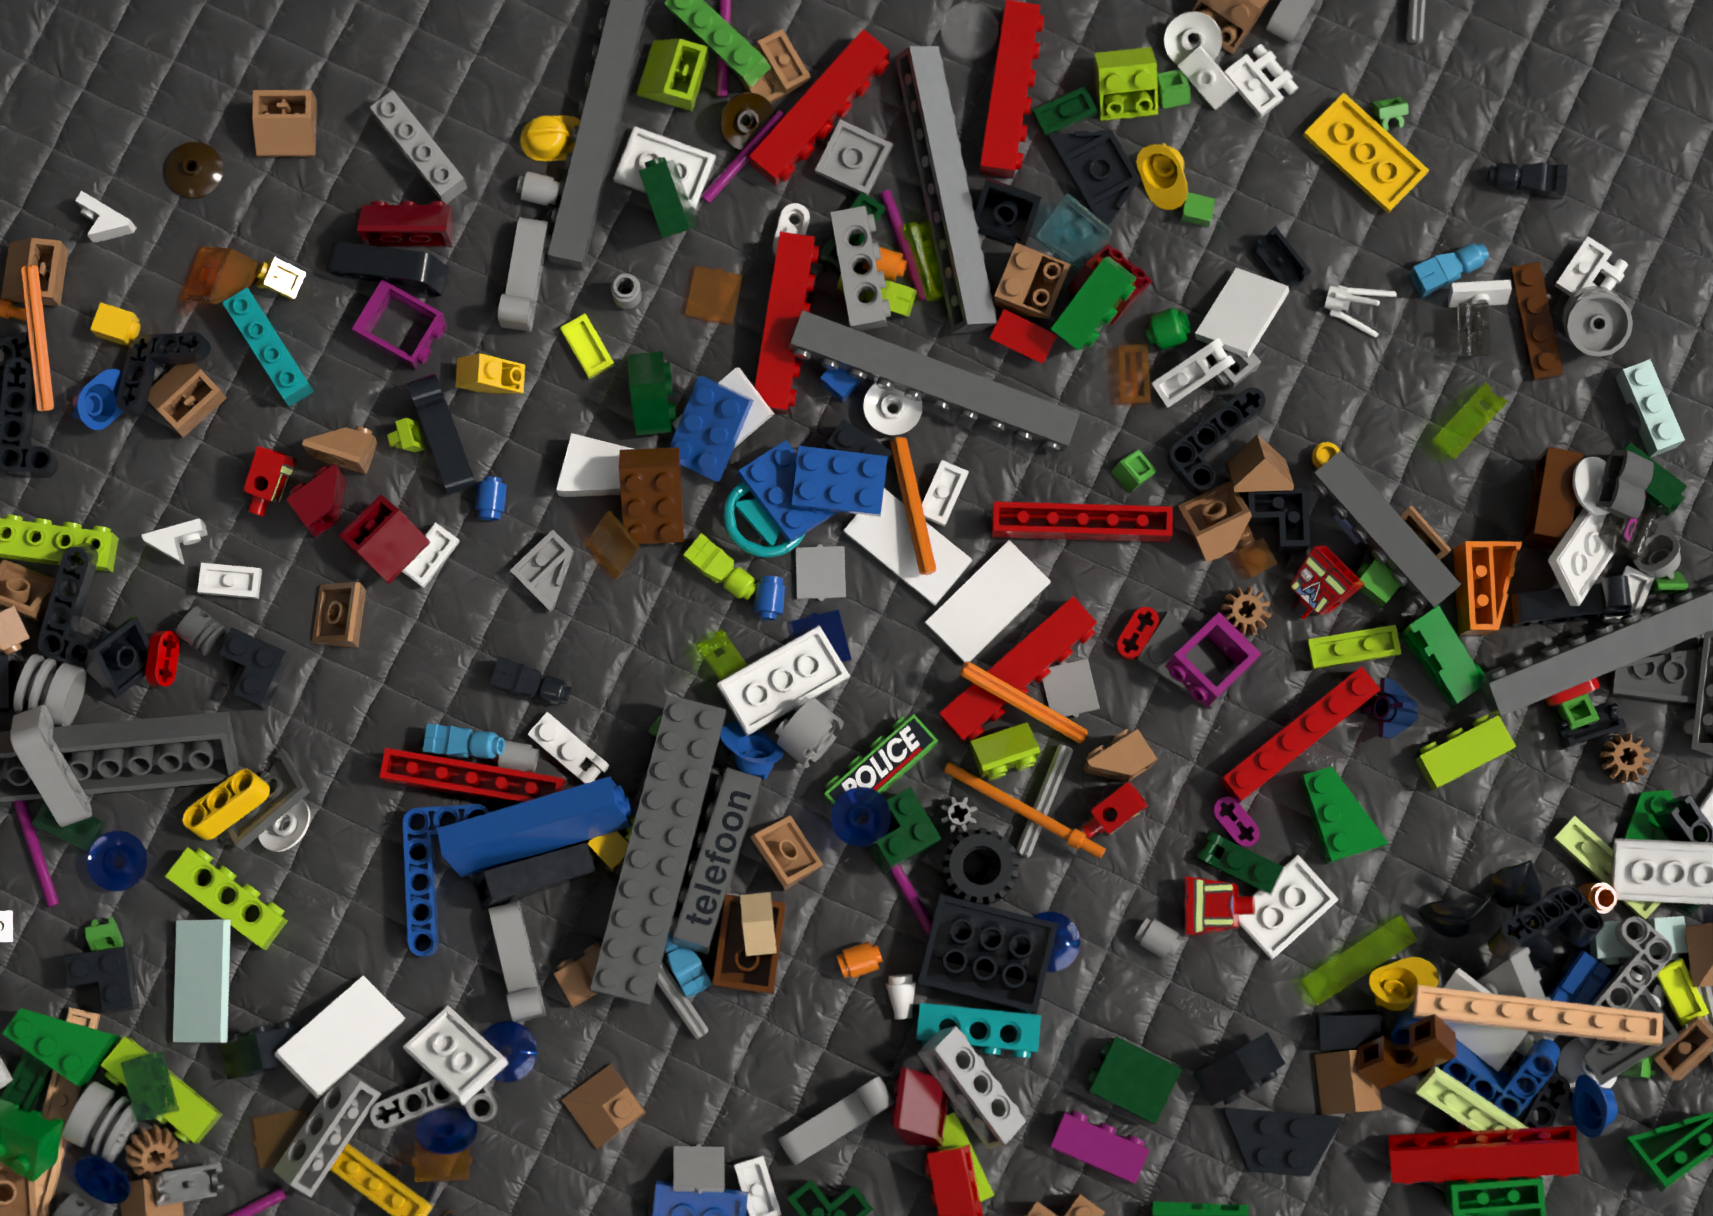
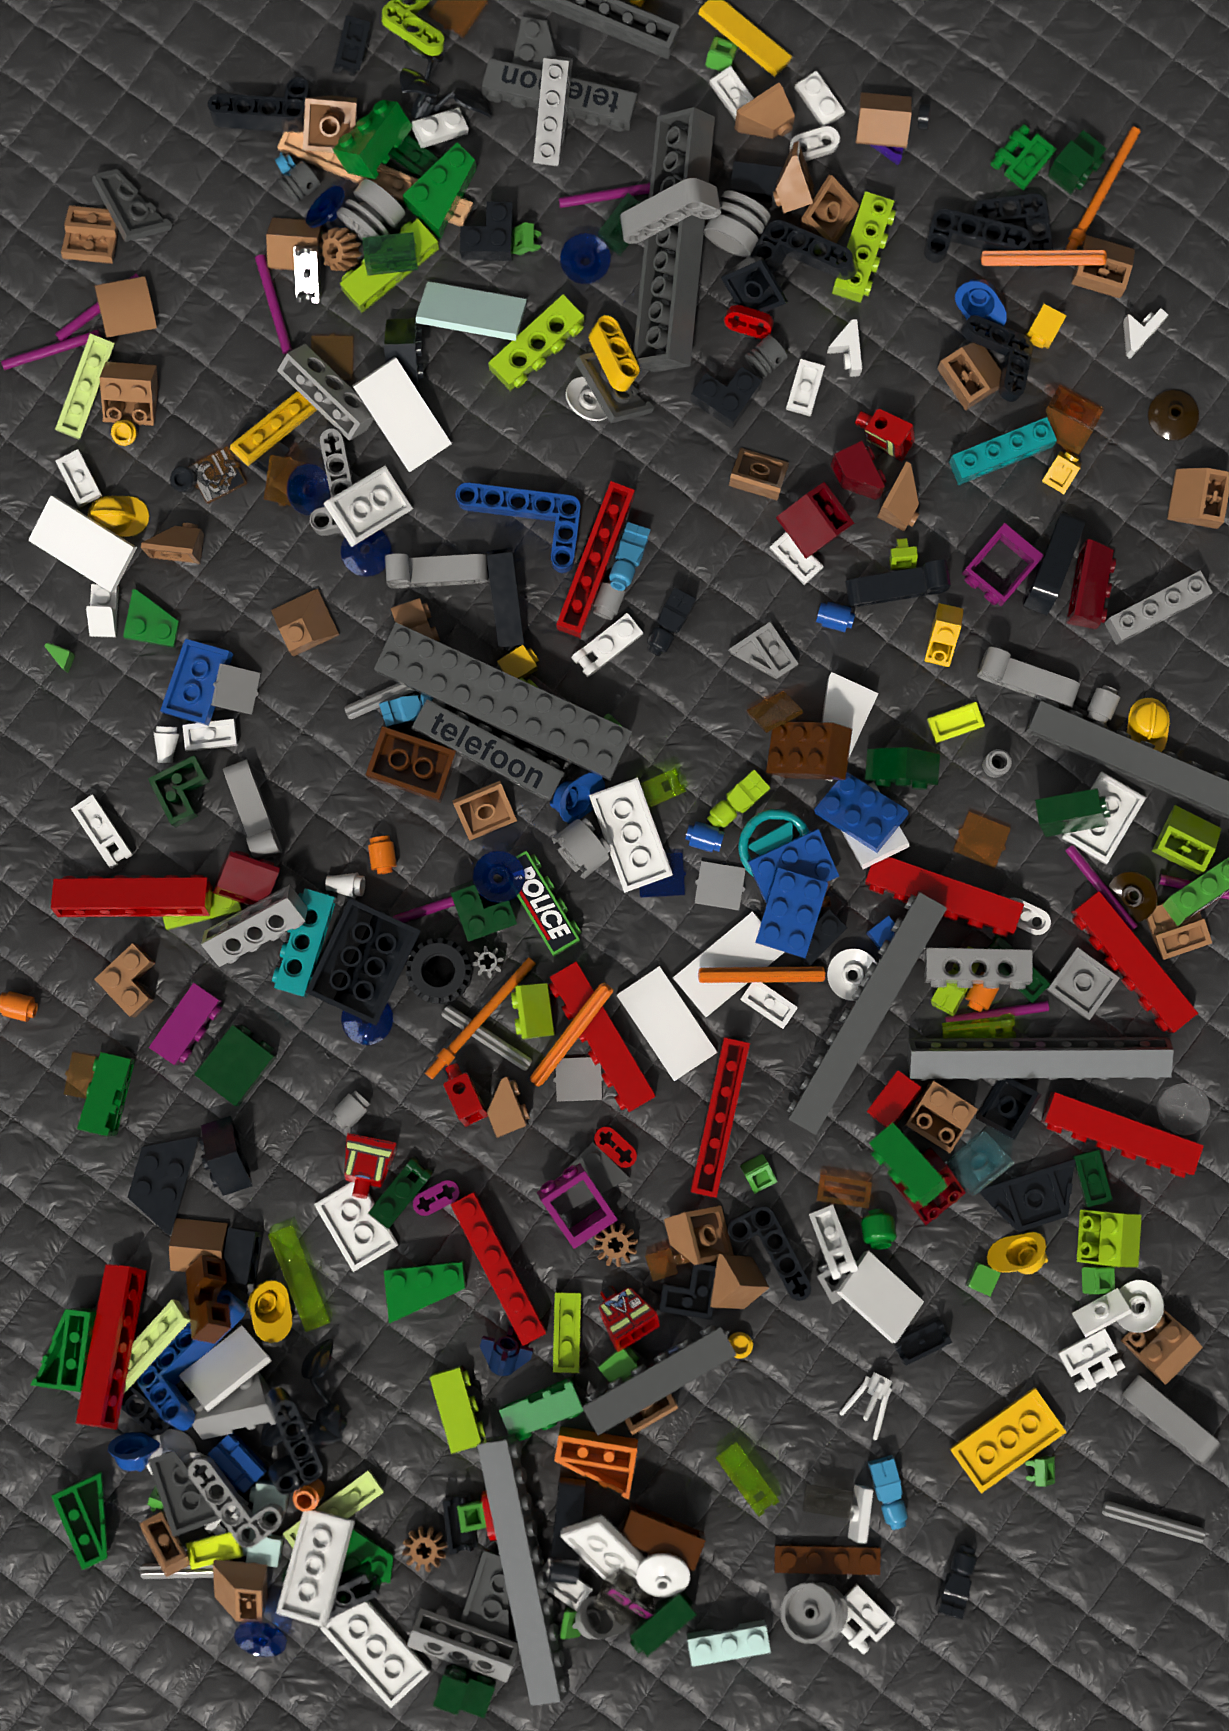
camera: 105 degrees right, 5 degrees up
(535, 826) = (542, 602): blue brick -> none
(758, 924) = (424, 772): tan slope -> none
(1539, 1015) = (213, 1418): light nougat tile -> none
(1624, 484) = (656, 1599): dark grey brick -> none

